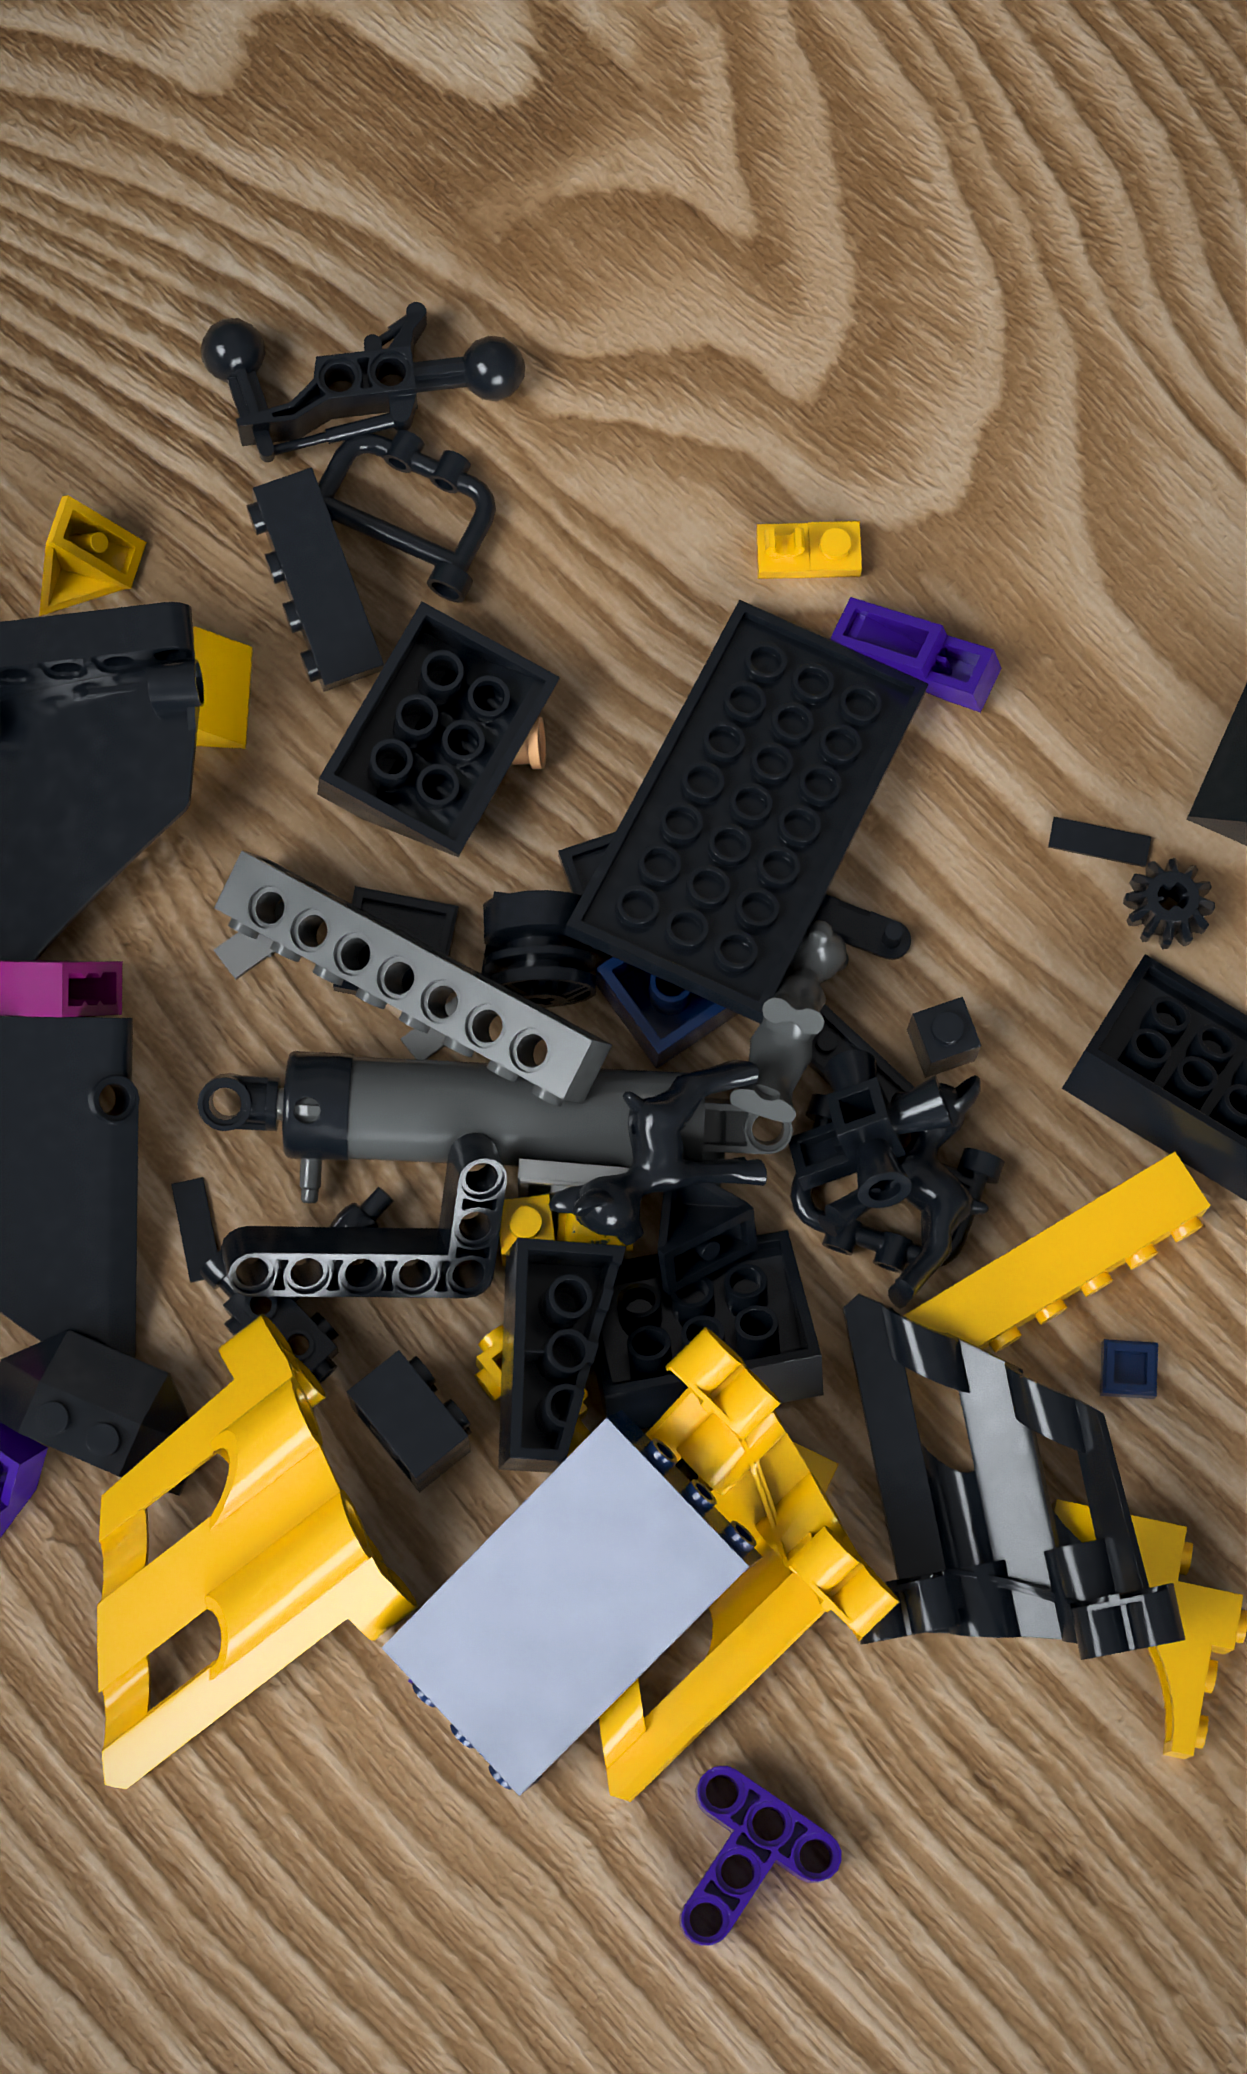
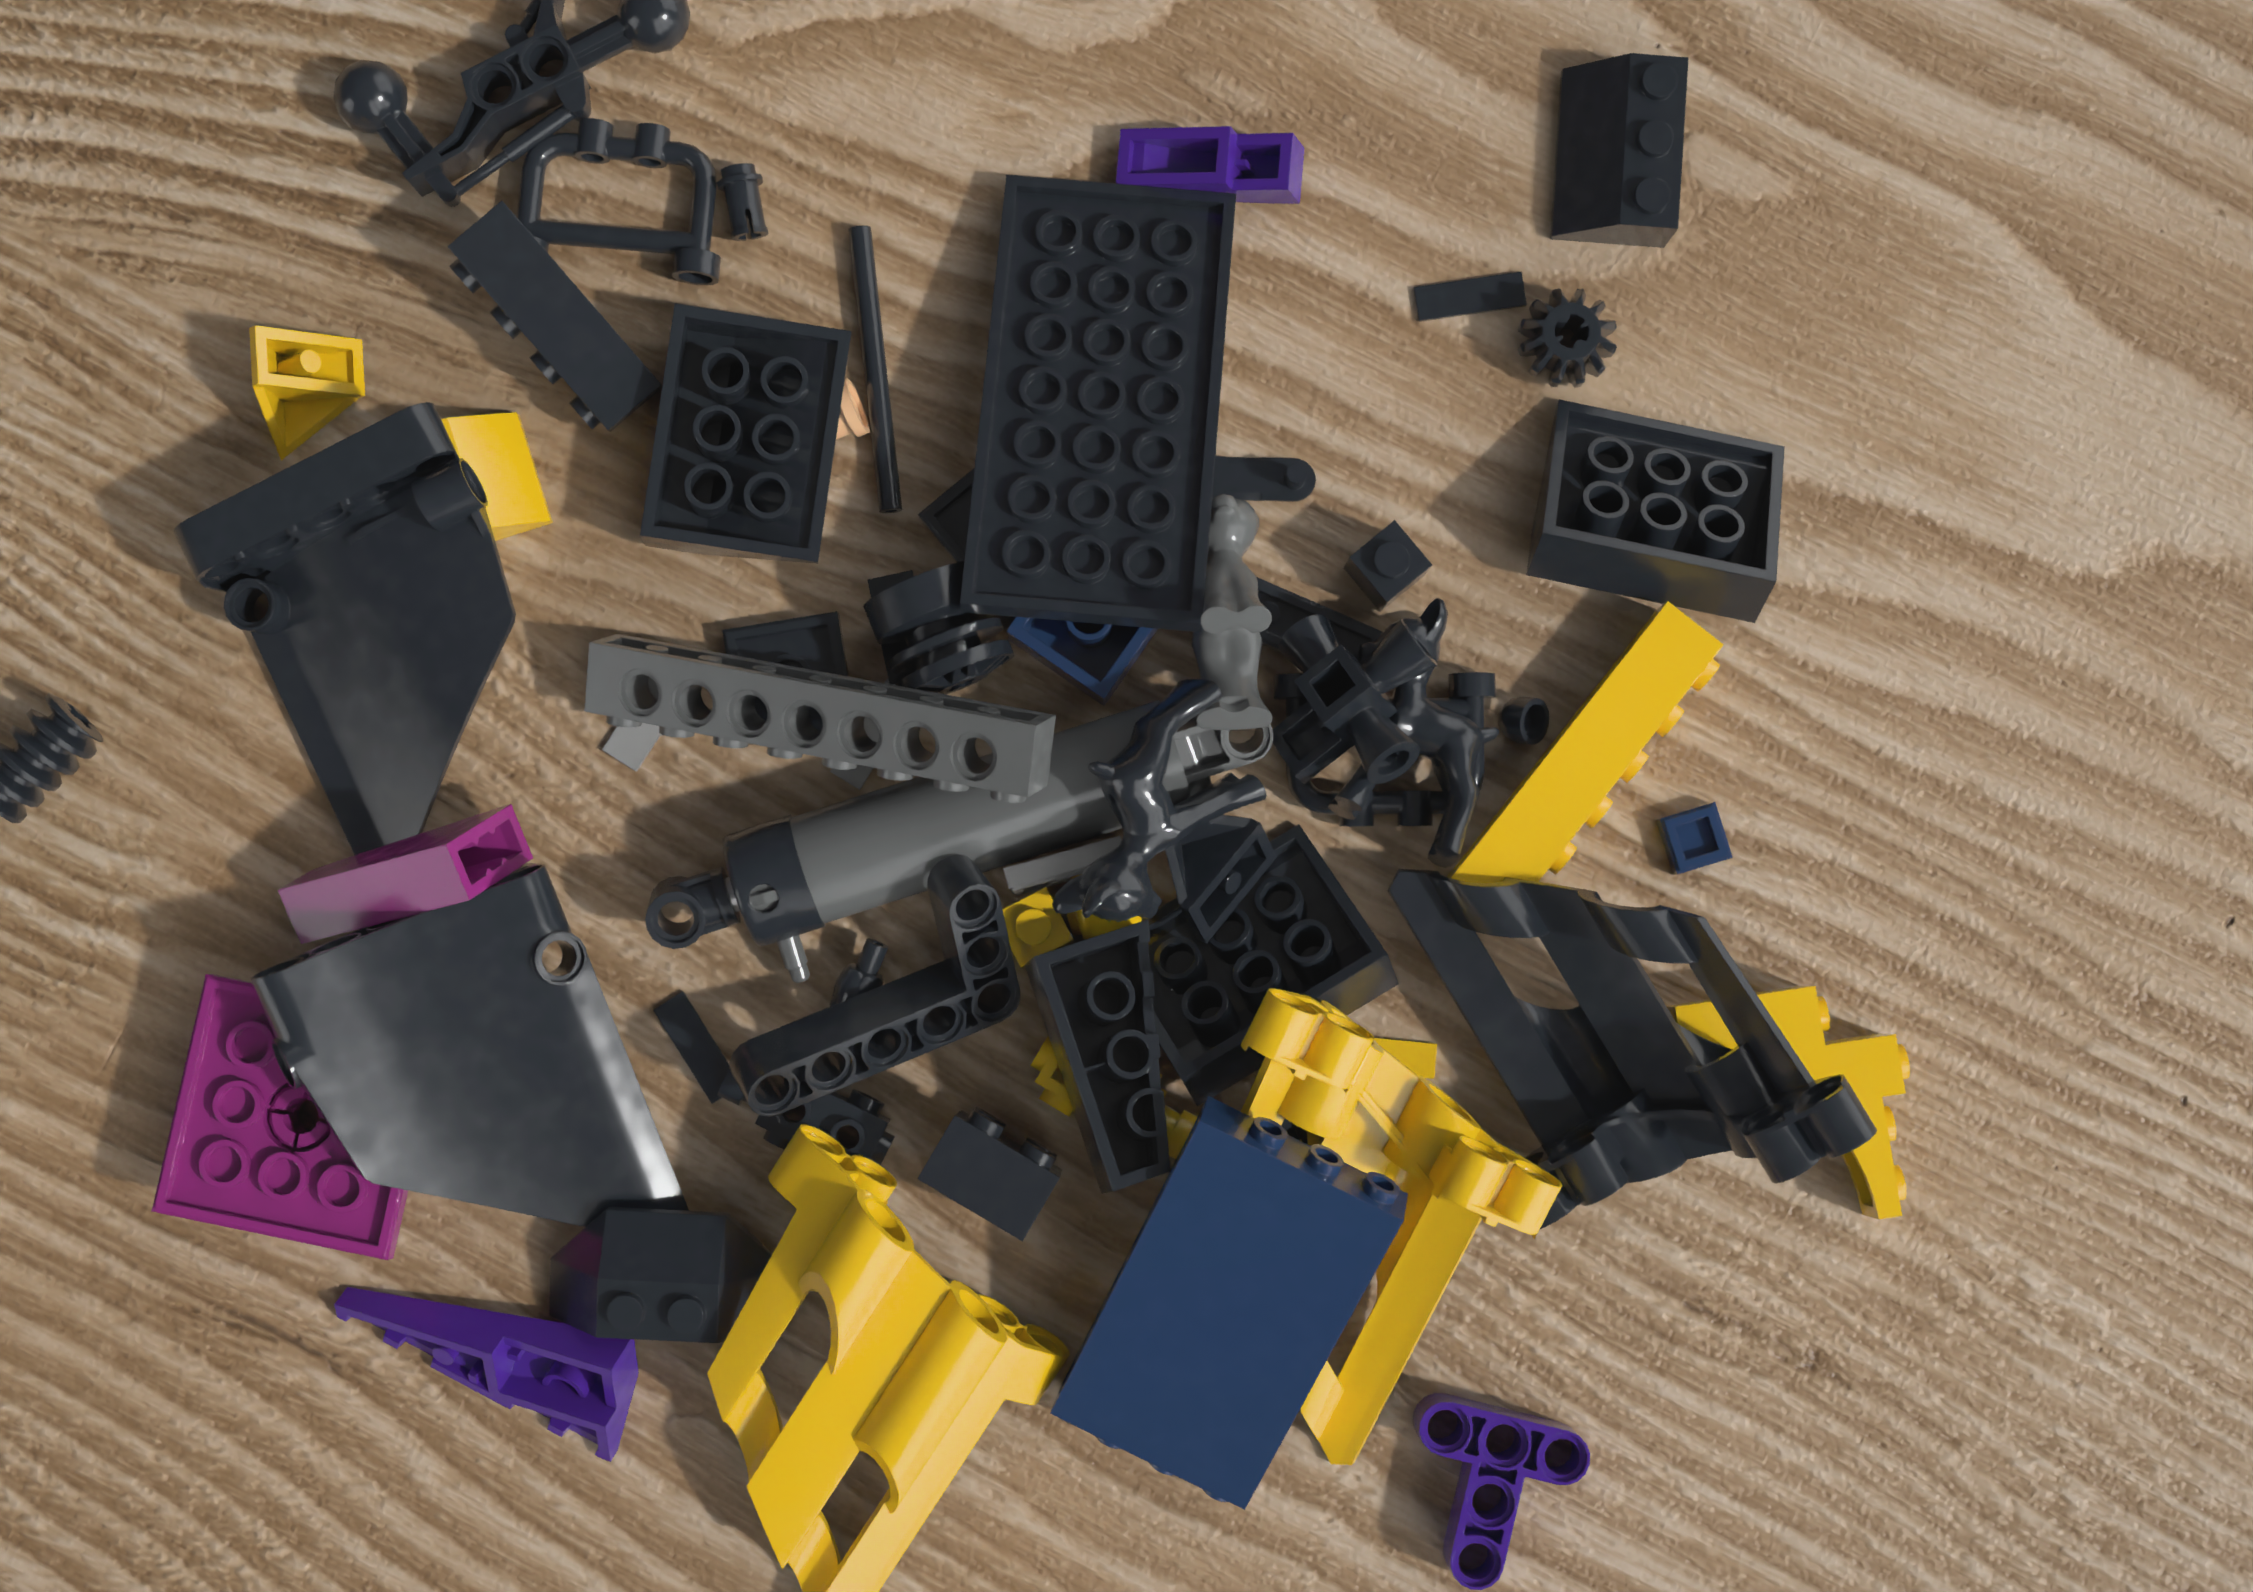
camera: 20 degrees left, 10 degrees up
(510, 543) = (743, 200): none -> black pin
(567, 721) = (875, 369): none -> black piece
(809, 550) = (1058, 92): yellow plate -> none
(1016, 1211) = (1524, 720): none -> black hinge

